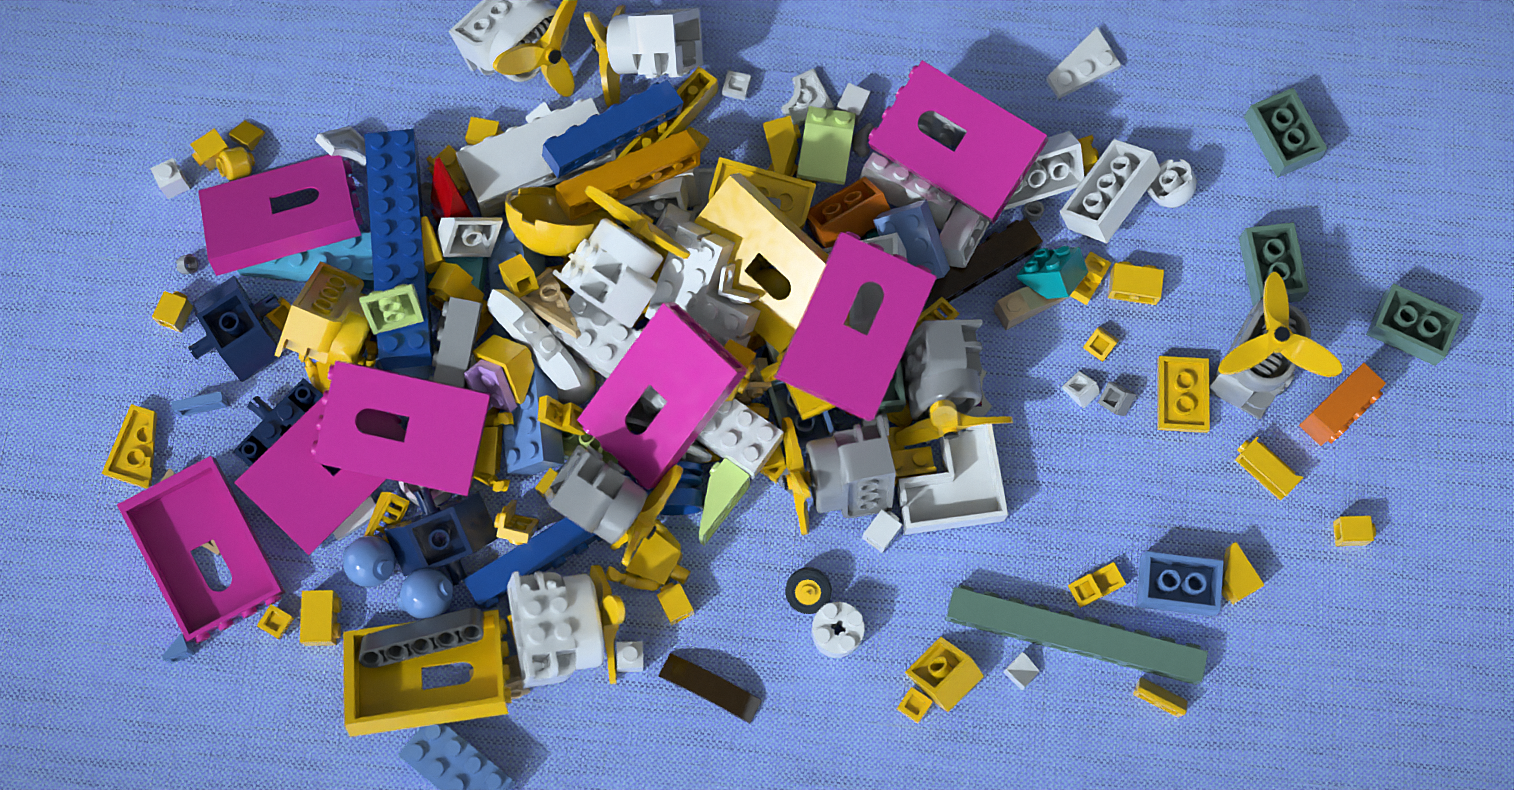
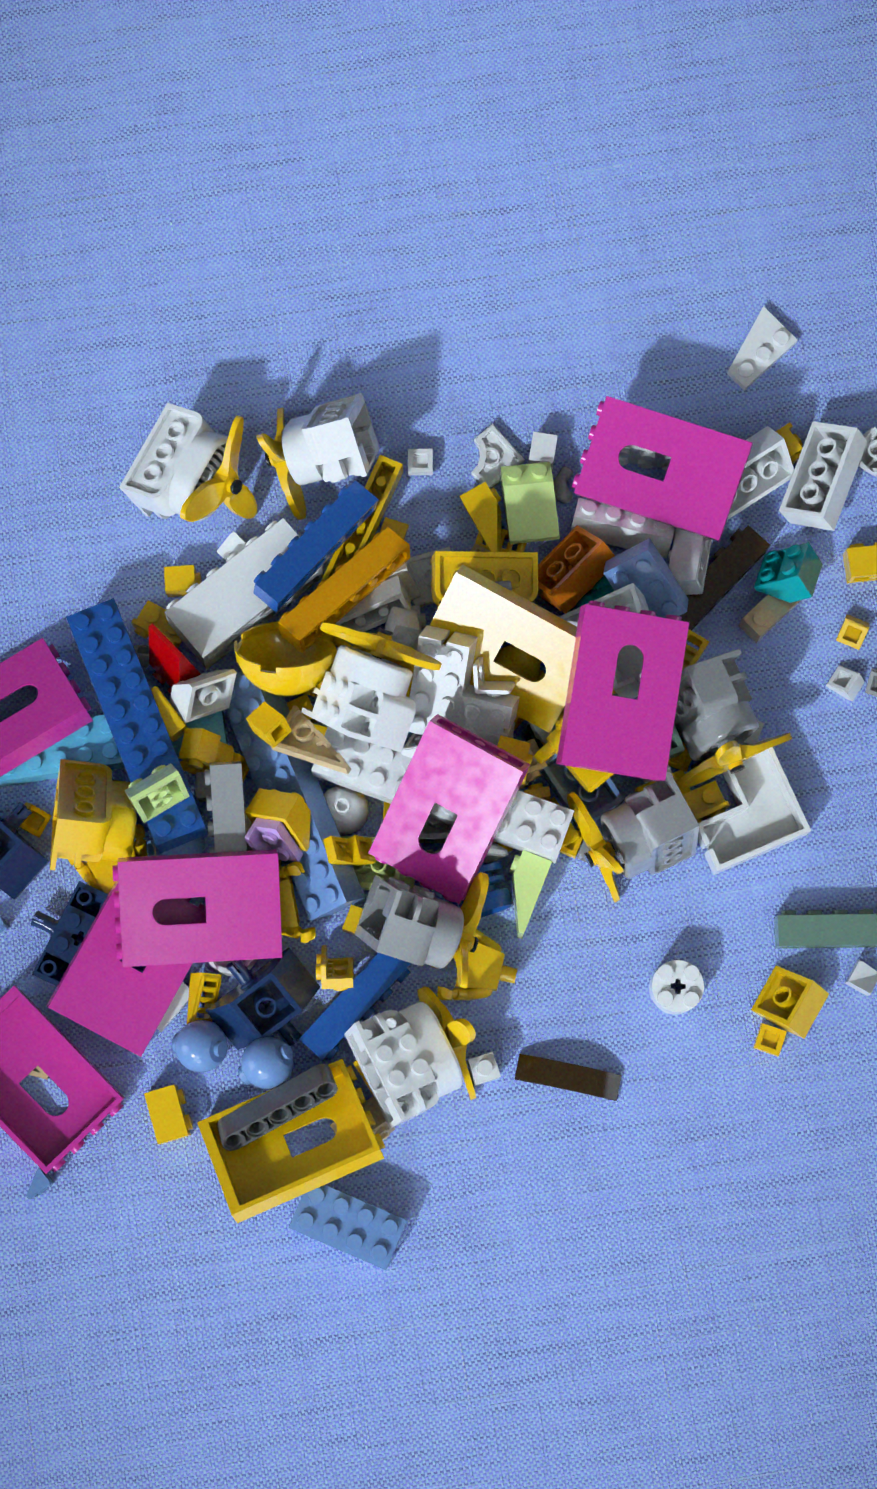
camera: 15 degrees left, 5 degrees up
(275, 622) = (125, 1130): yellow plate -> none
(344, 143) = (46, 628): white tile -> none
(531, 332) = (299, 778): white brick -> none
(675, 603) = (511, 1004): yellow brick -> none
(808, 590) = (637, 956): black wheel -> none
(882, 530) = (692, 877): white brick -> none
(1033, 211) = (749, 513): light grey hinge -> none
(1097, 269) = (829, 556): yellow slope -> none

